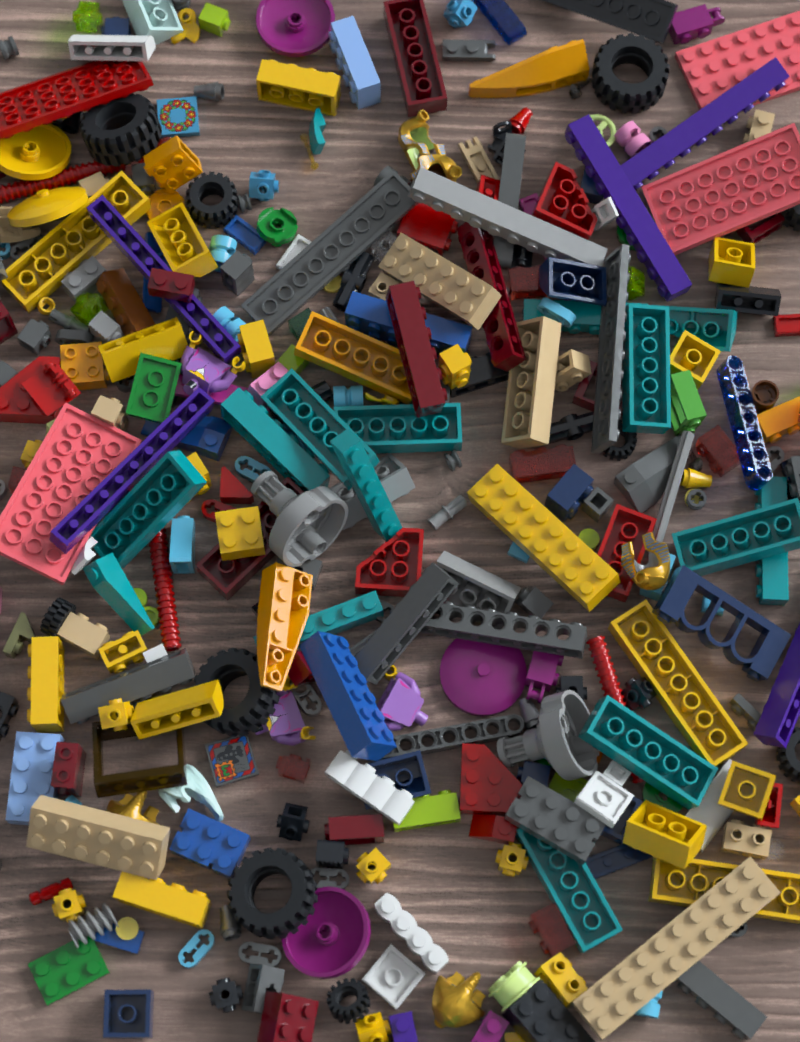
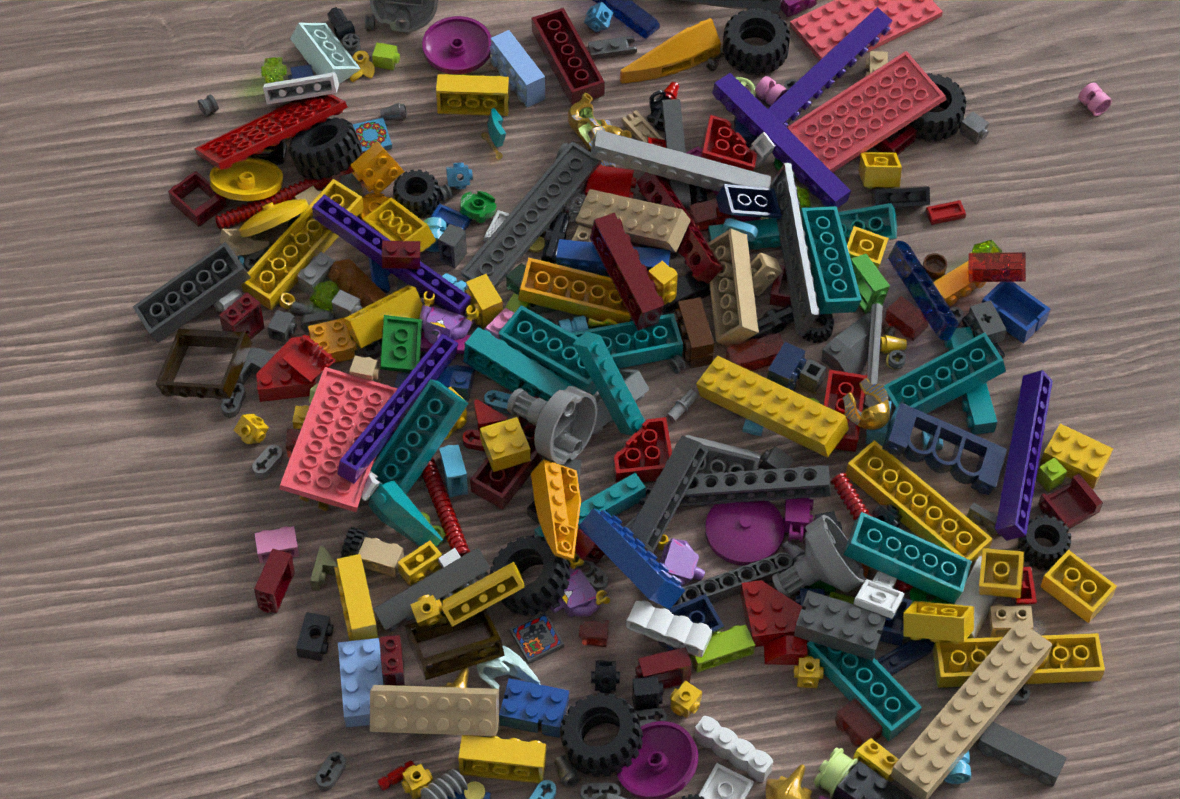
camera: 10 degrees left, 15 degrees down
(478, 429) = (695, 333): none -> reddish brown piece

